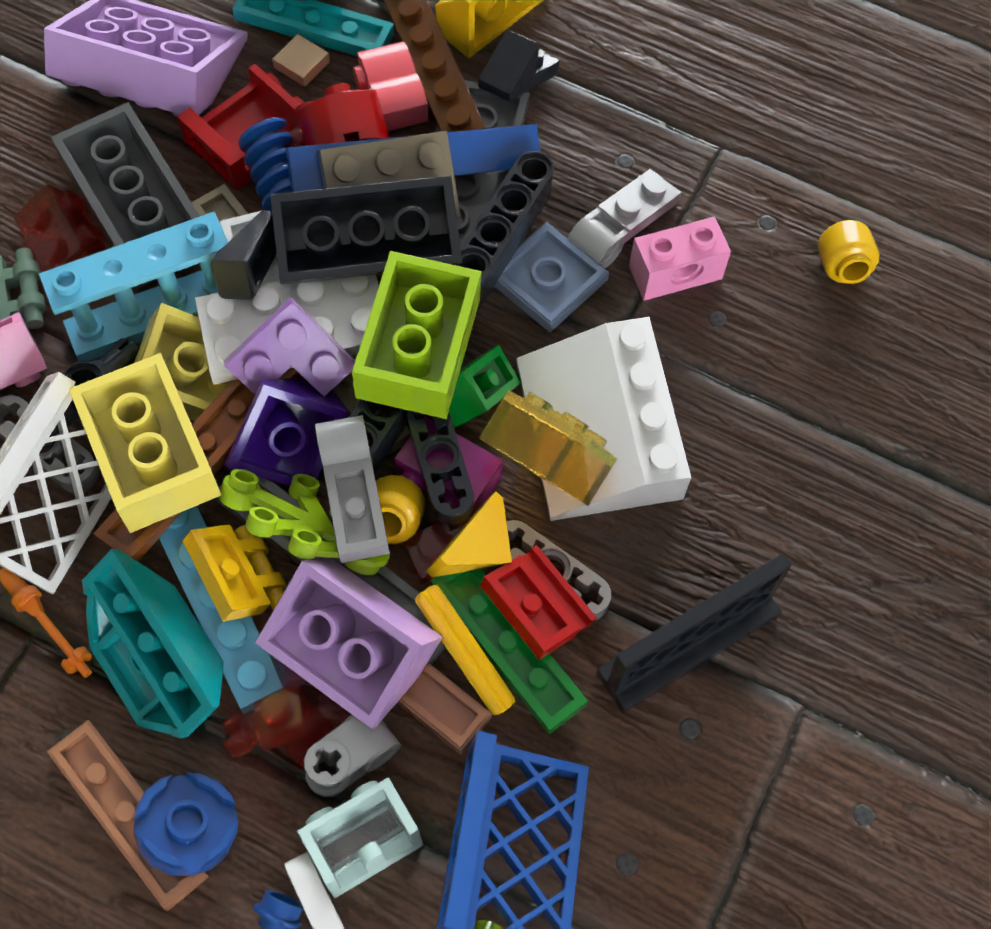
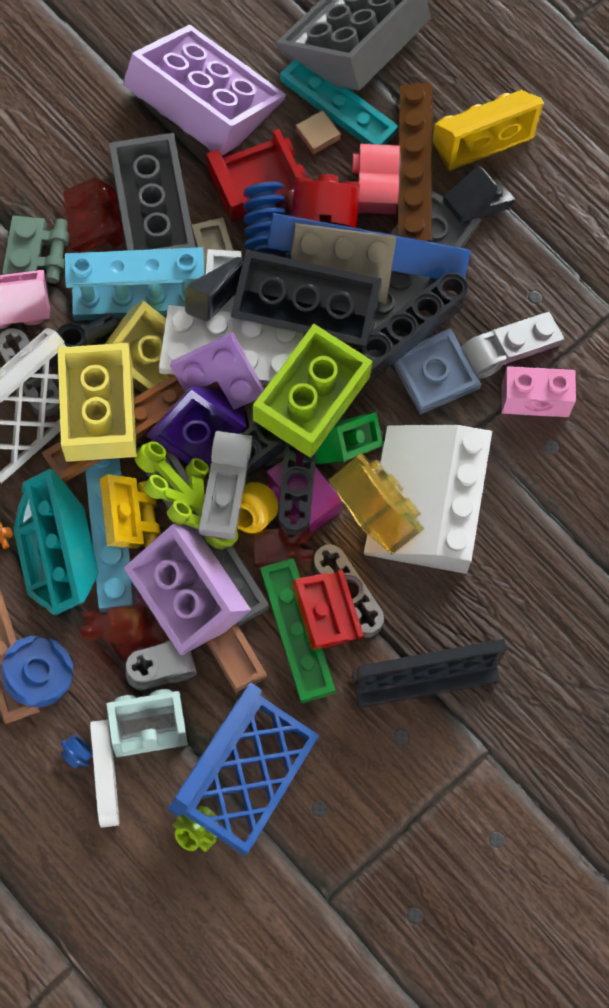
camera: 20 degrees right, 5 degrees up
(465, 650) = (264, 624): yellow axle -> none
(479, 543) = (301, 554): yellow slope -> none

